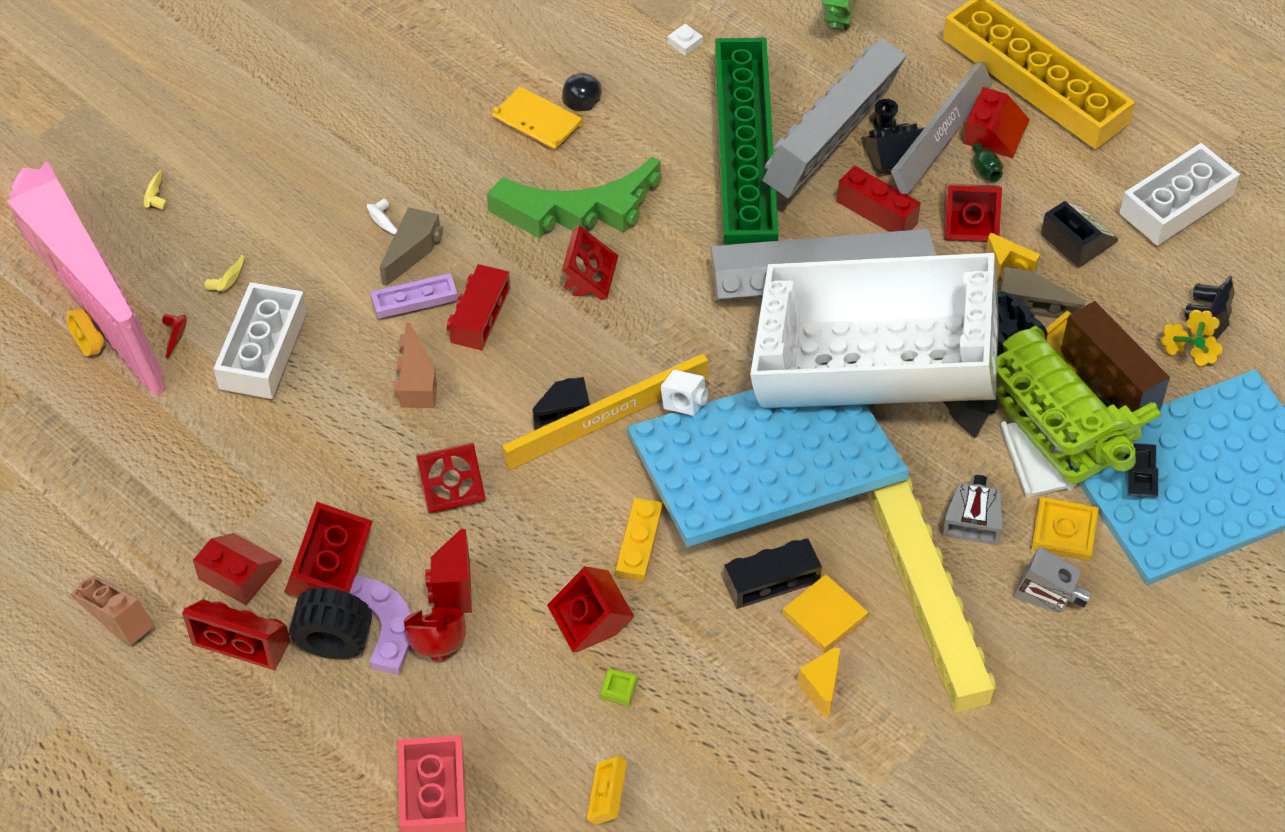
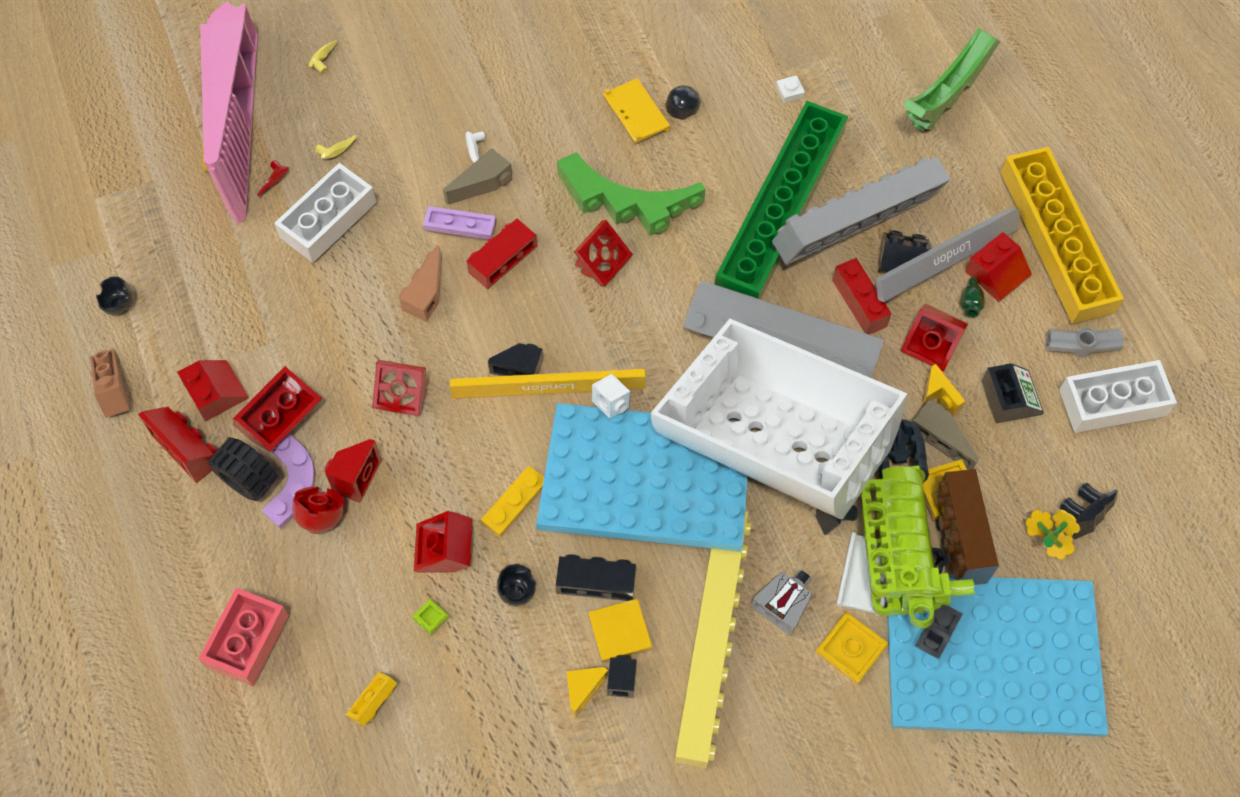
camera: 25 degrees right, 10 degrees up
(65, 517) = (114, 296): none -> black hair
(693, 614) = (515, 585): none -> black hair
(857, 653) = (621, 677): none -> black brick
(886, 115) = (914, 223): black bush -> none
(1050, 583) = (801, 686): light grey torso -> none
(1117, 158) = (1072, 341): none -> light grey piece

